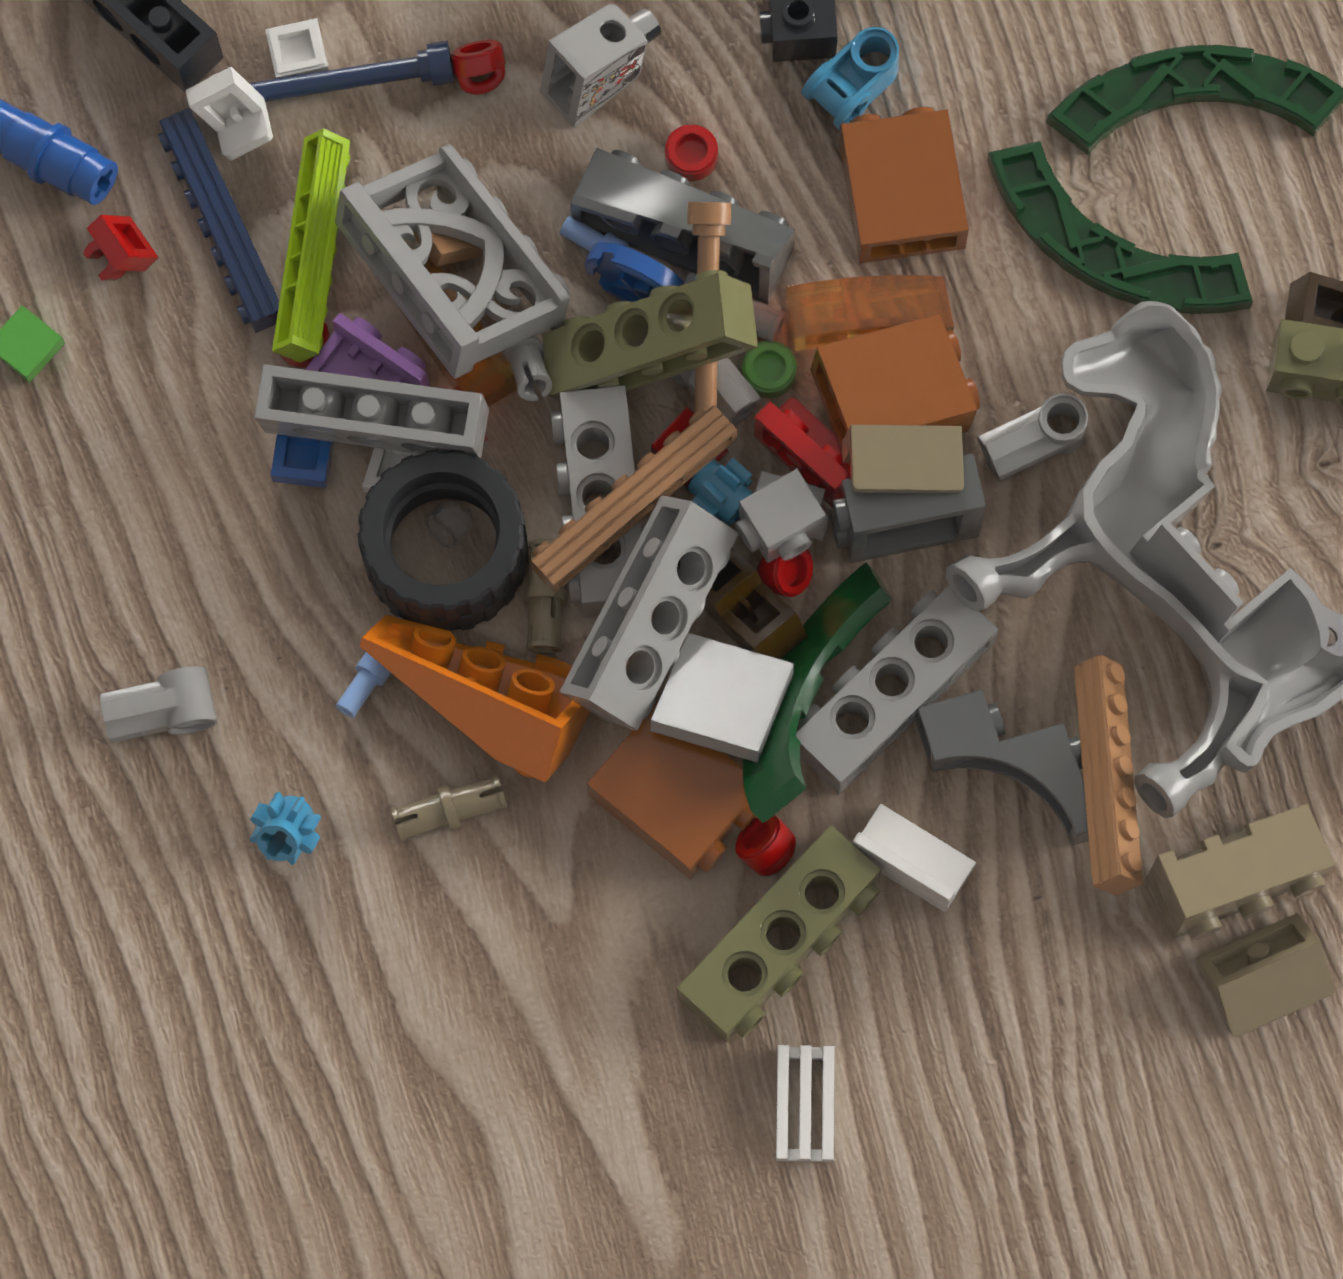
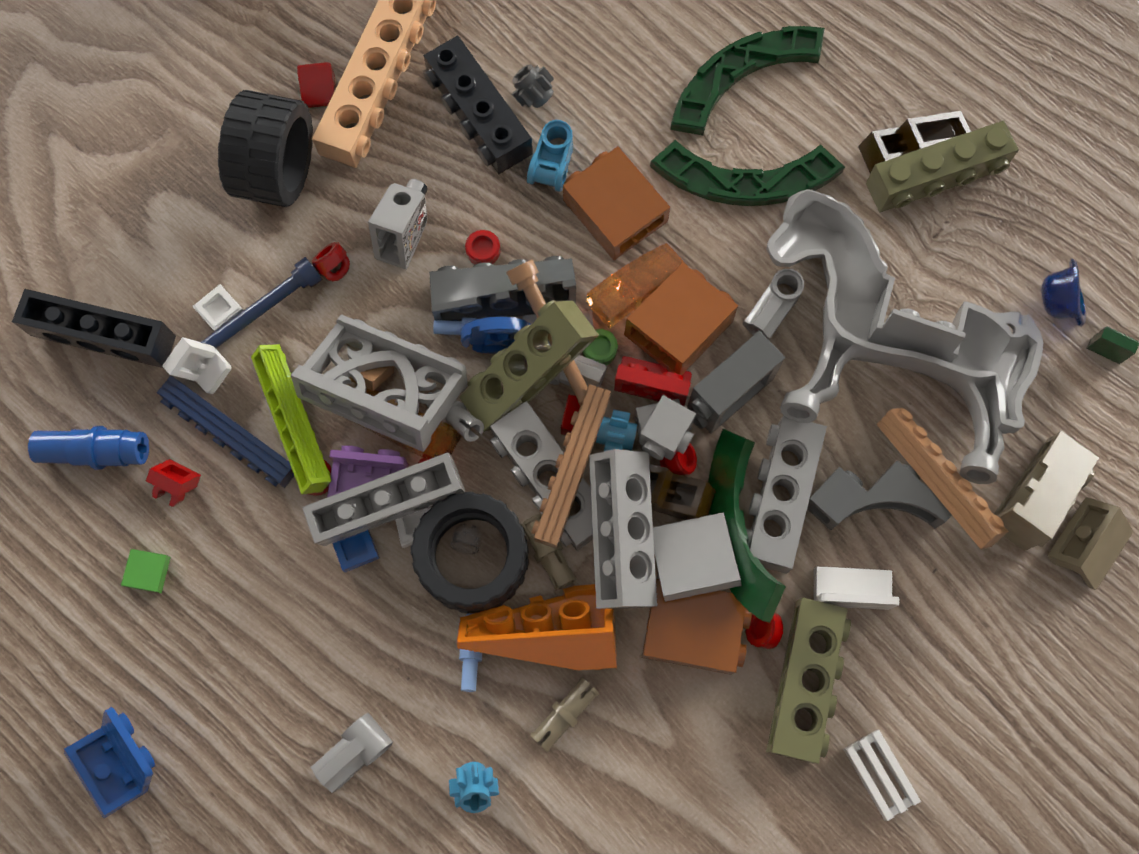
camera: 30 degrees left, 0 degrees up
(904, 458) = (722, 355): dark tan panel -> none

